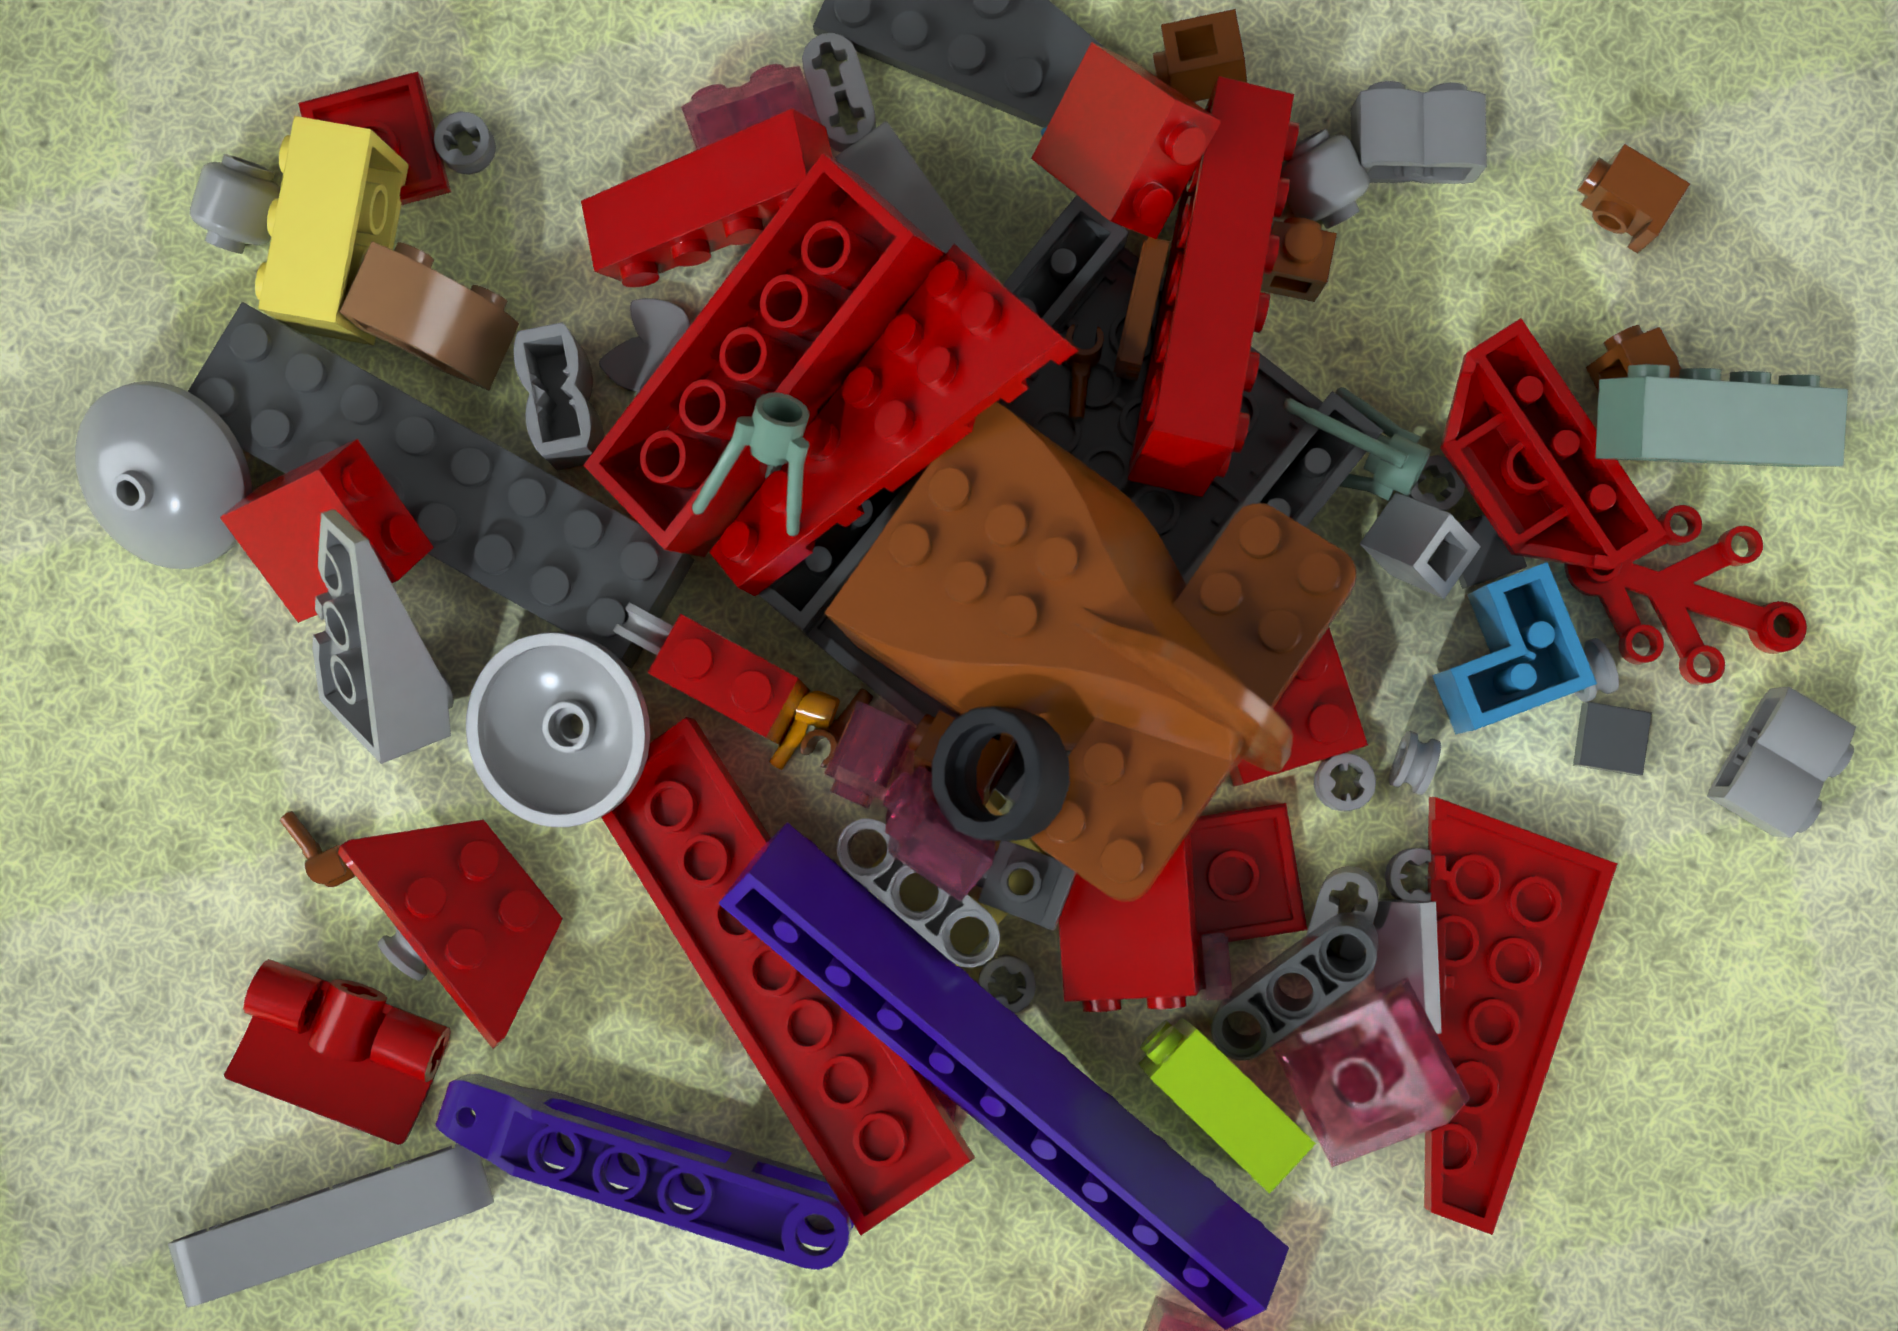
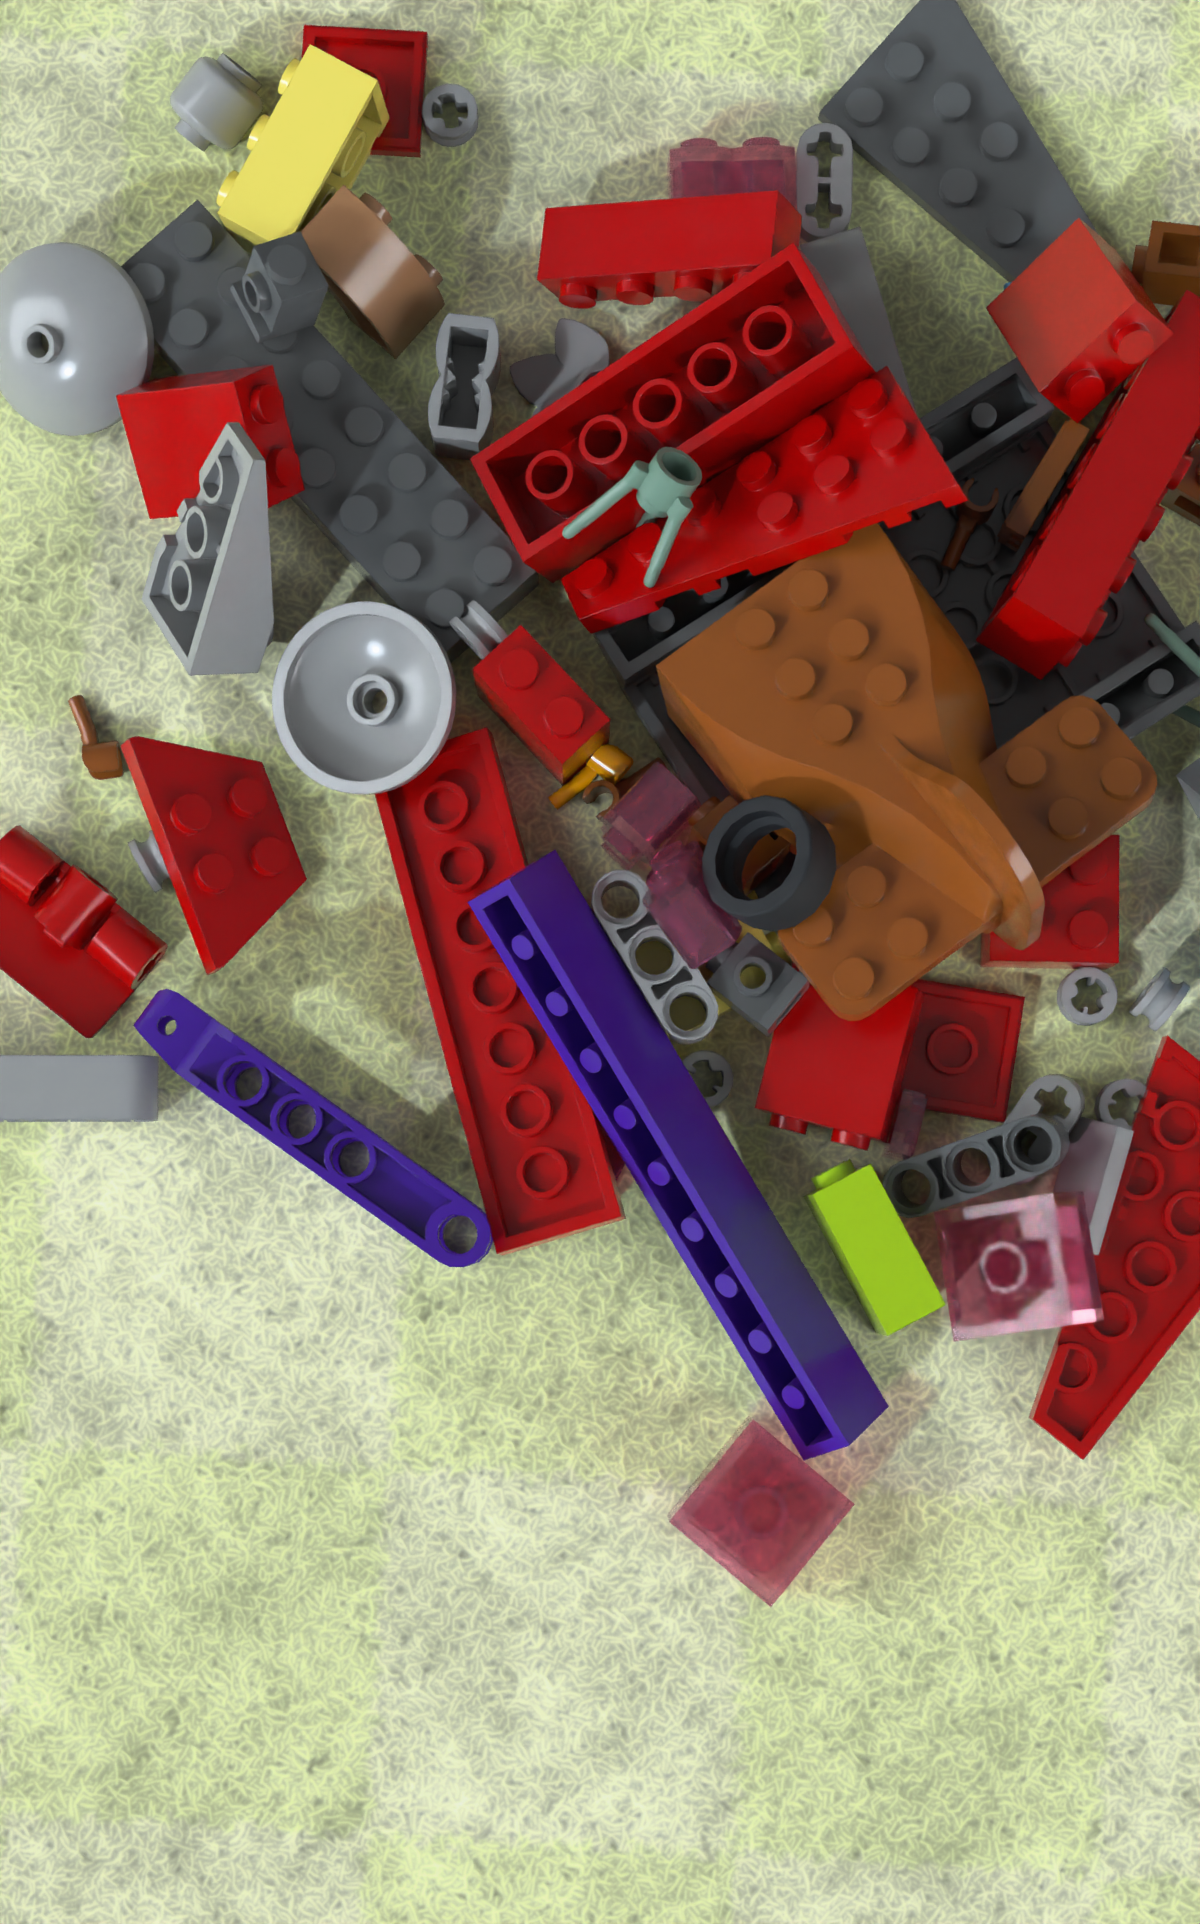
camera: 10 degrees right, 0 degrees up
(343, 361) = (280, 288): none -> dark grey brick

